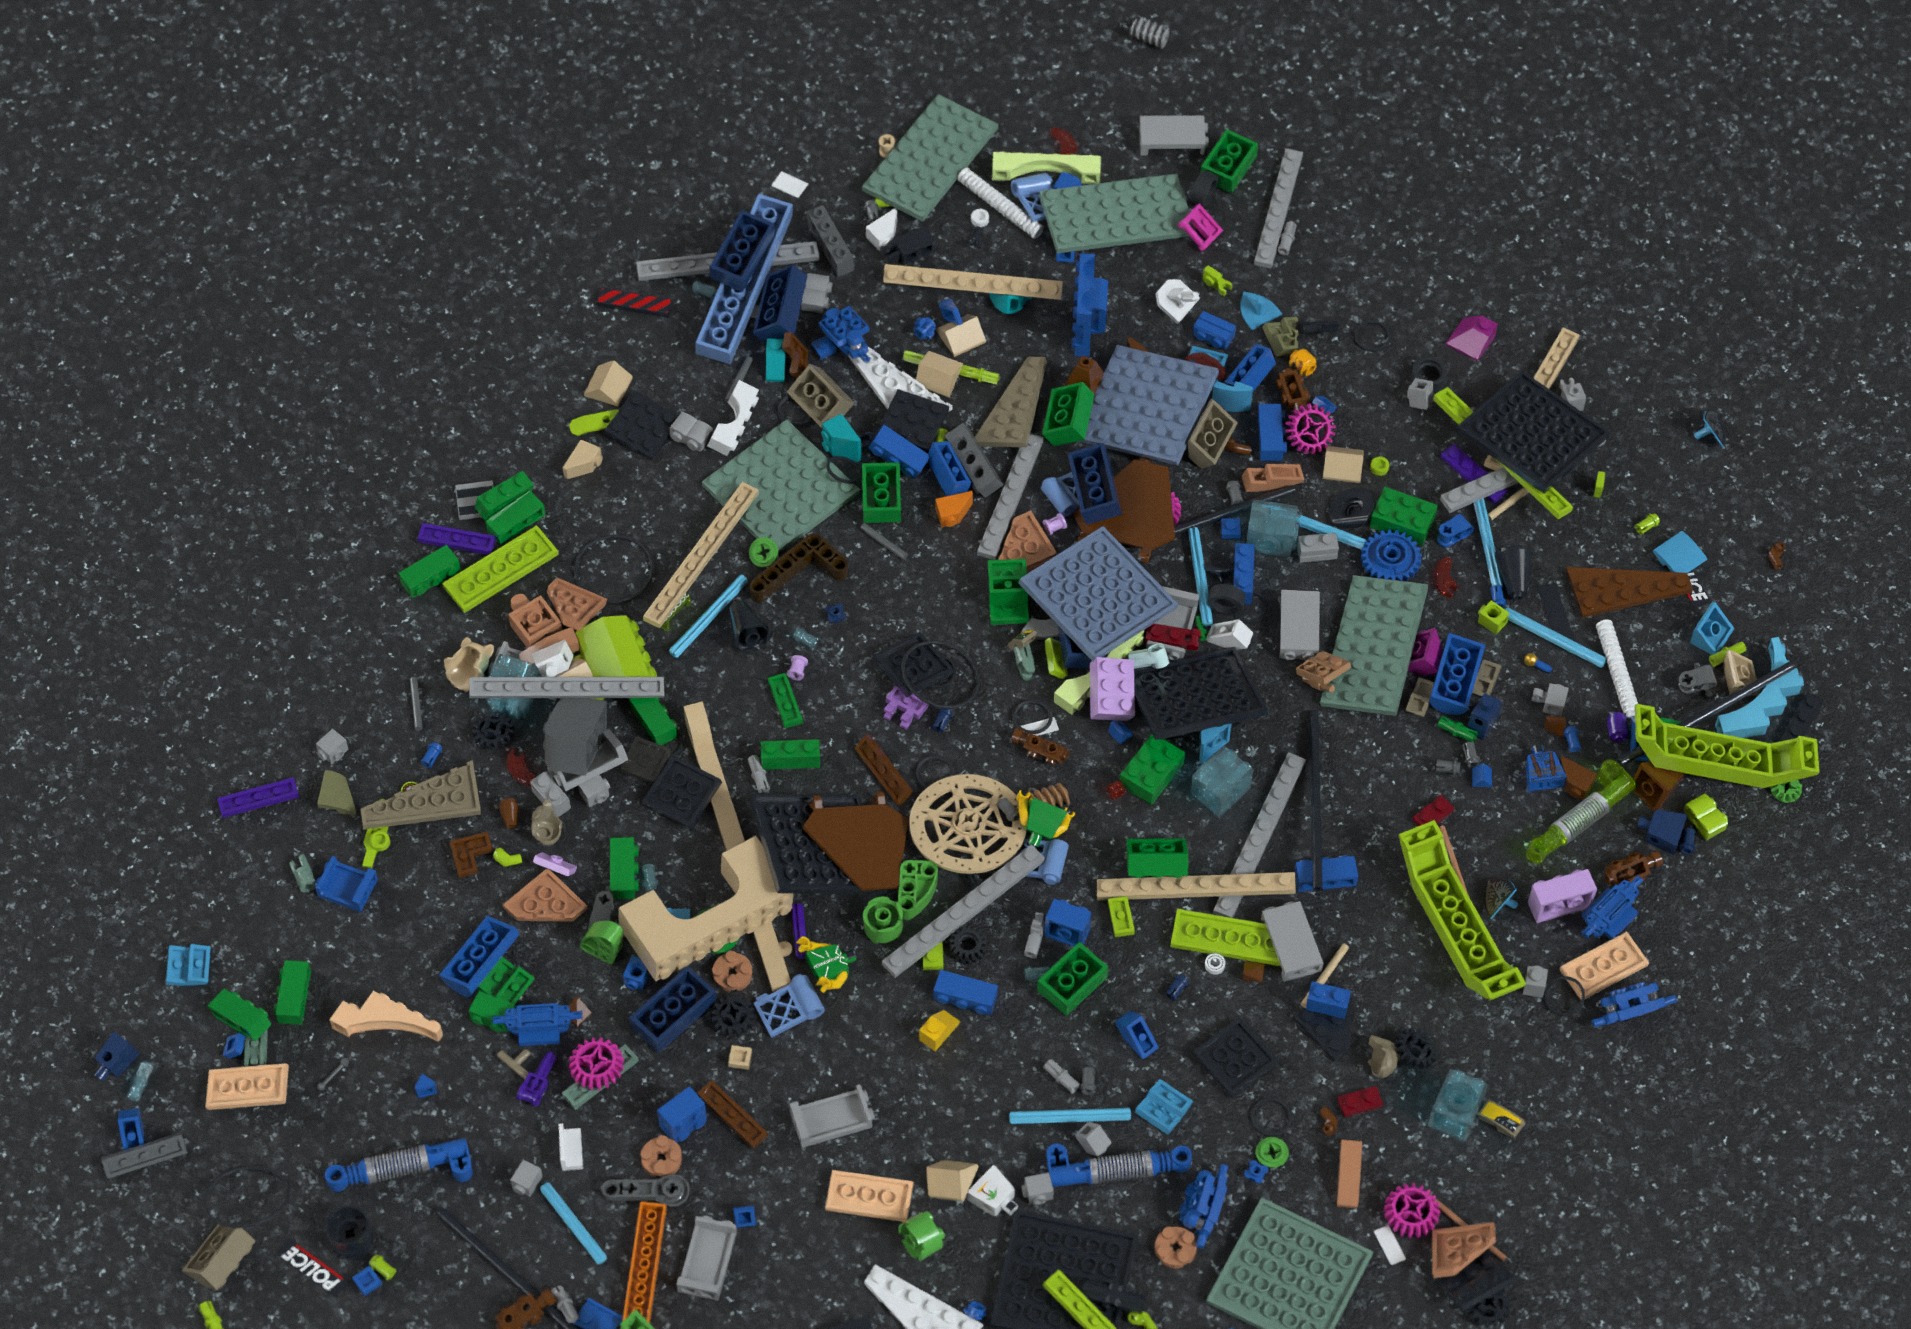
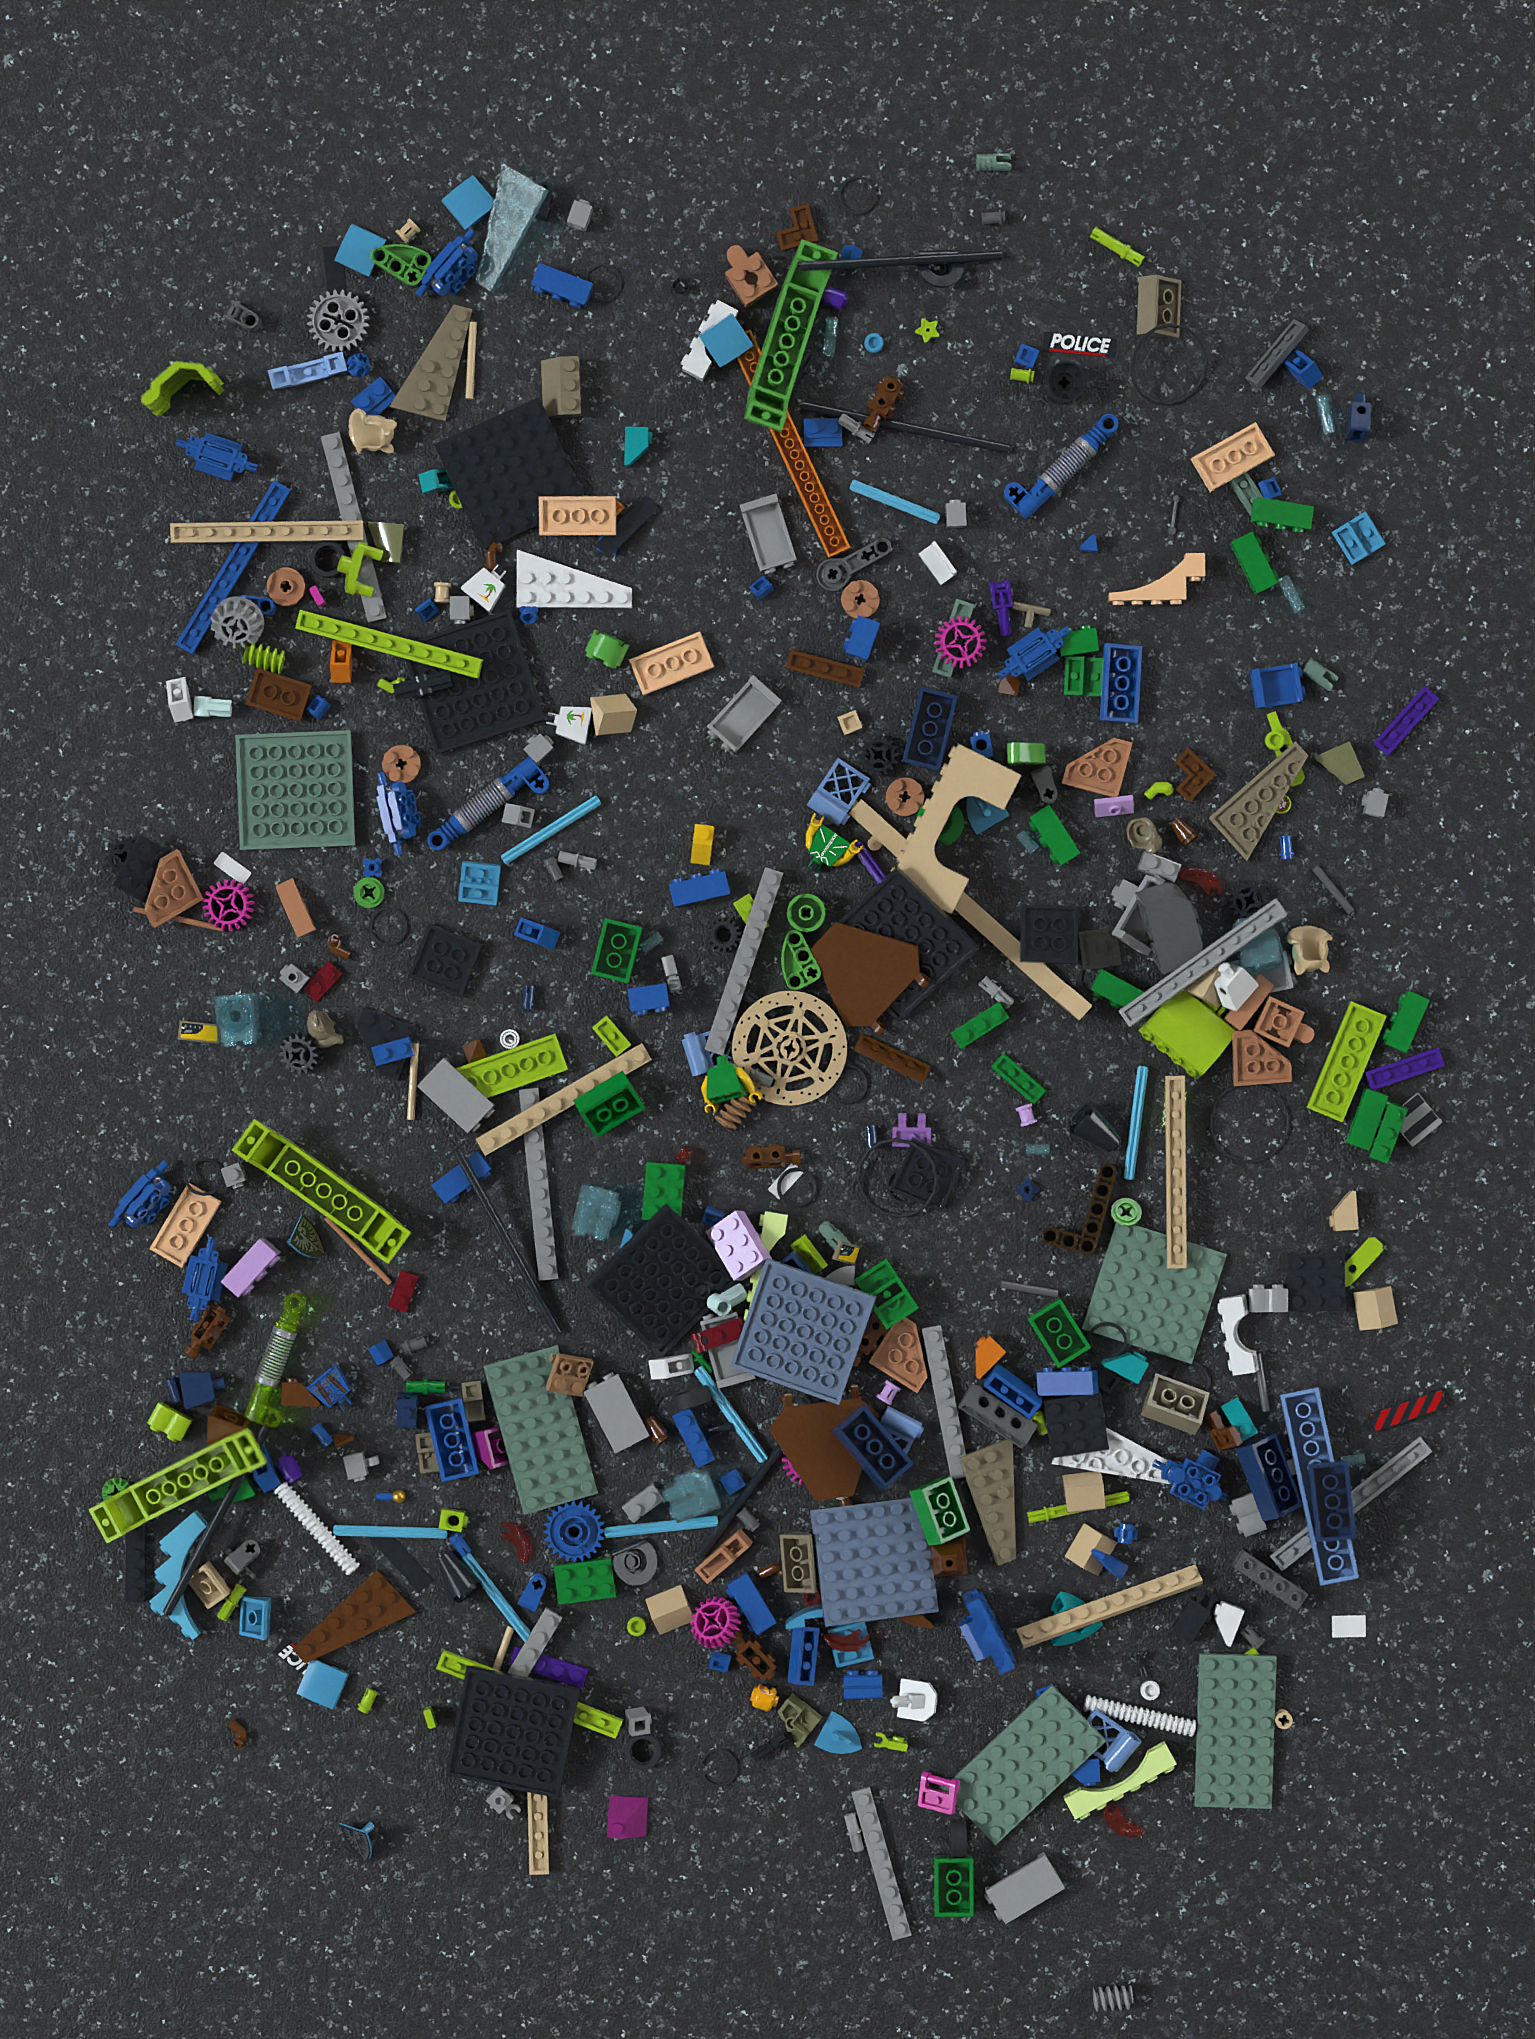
camera: 150 degrees right, 30 degrees up
(279, 950) = (1291, 594): none -> clear light blue axle
(1272, 593) = (656, 1430): none -> reddish brown cone
(1384, 1115) = (294, 977): none -> light grey brick

